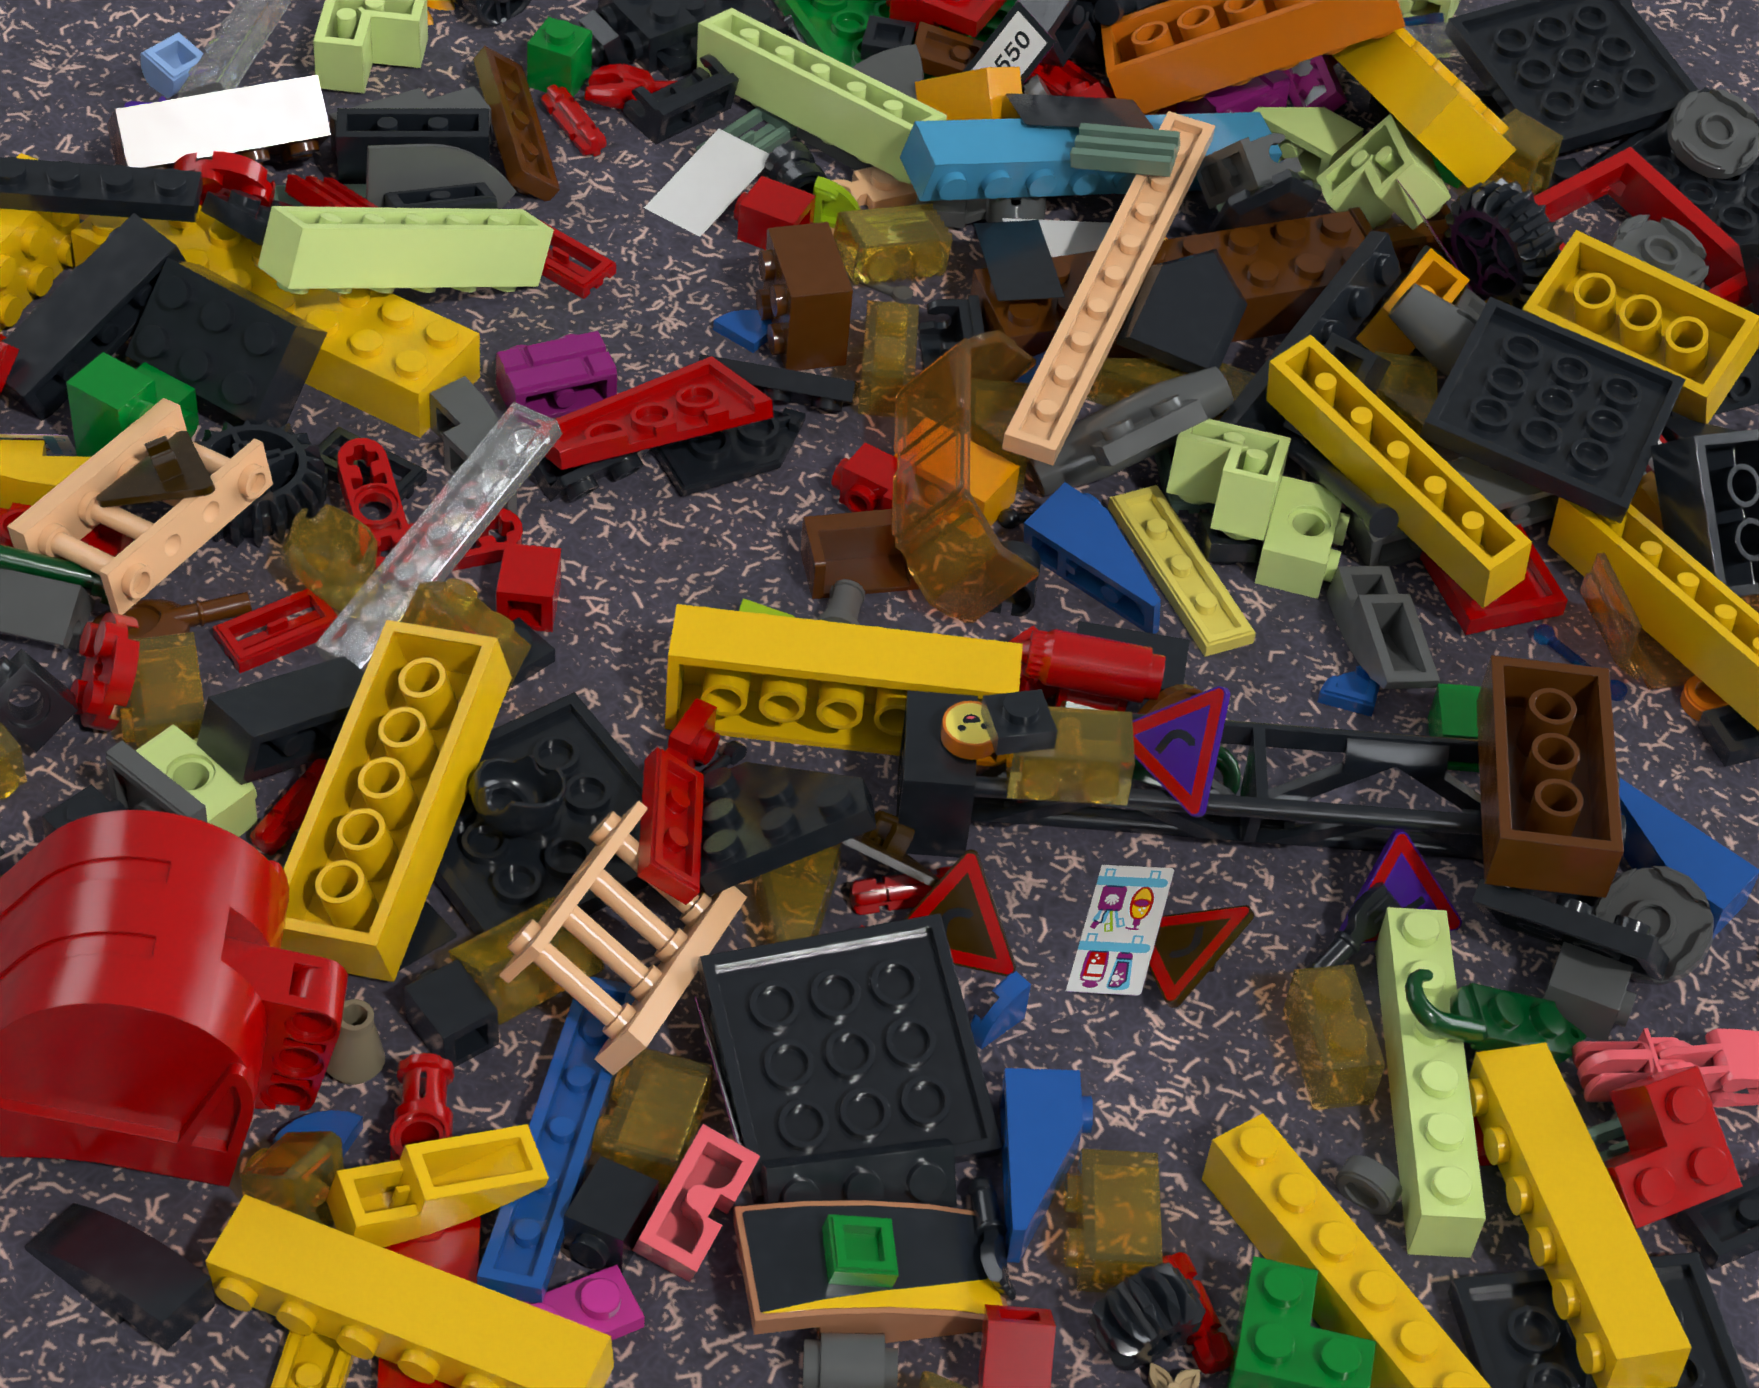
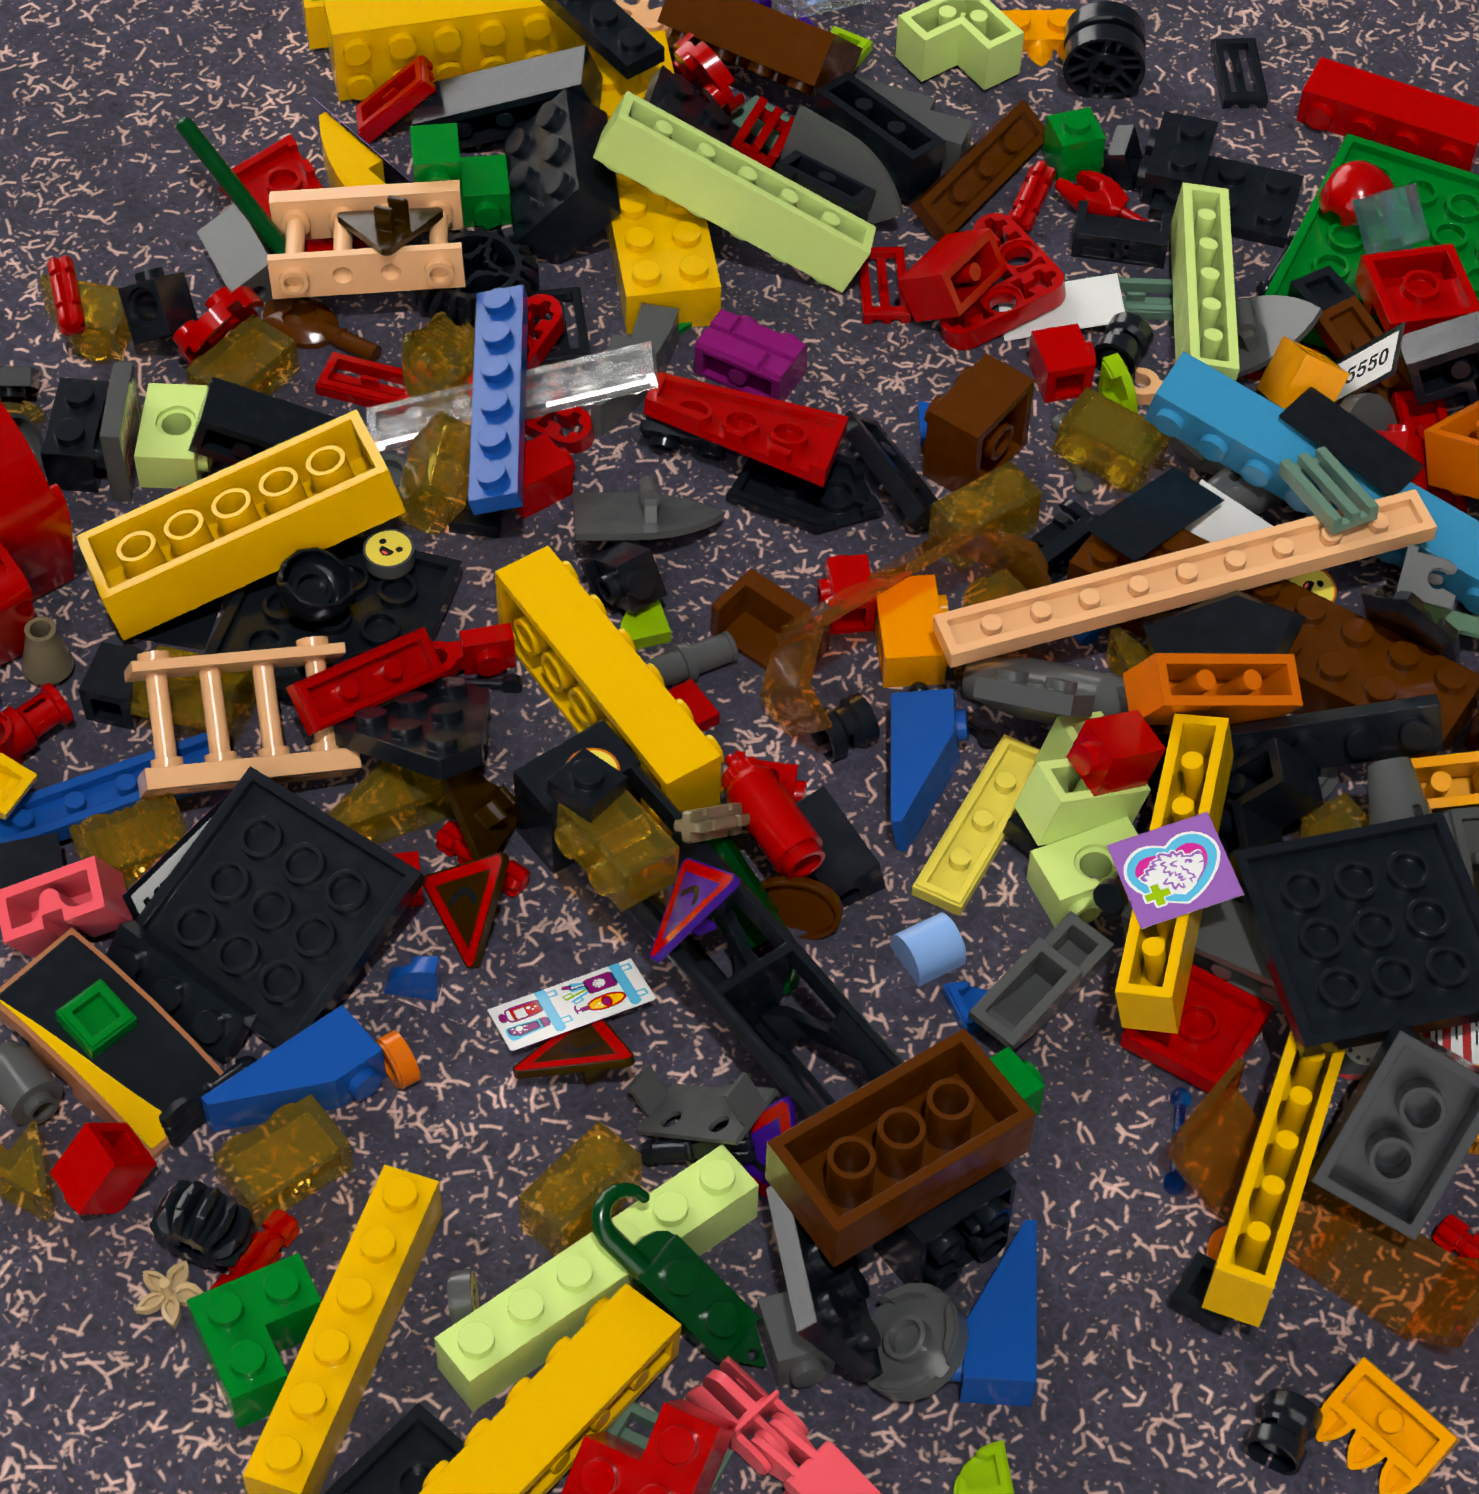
camera: 55 degrees right, 5 degrees up
(449, 539) = (498, 400): none -> plate
(521, 729) = (389, 553): none -> tile
(620, 208) = (952, 275): none -> red brick
(646, 555) = (638, 515): none -> dark grey shield
(660, 181) = (1030, 287): none -> red beam
(720, 586) = (624, 576): none -> black brick
(1089, 691) = (711, 822): none -> dark tan axle
(1093, 1070) = (398, 1060): none -> orange tile
(1256, 333) = (1213, 686): none -> orange brick
(1261, 422) = (1115, 752): none -> red brick
(1275, 675) = (930, 948): none -> light blue brick
(1330, 904) = (699, 1108): none -> dark grey piece
(1417, 460) = (1174, 870): none -> sticker

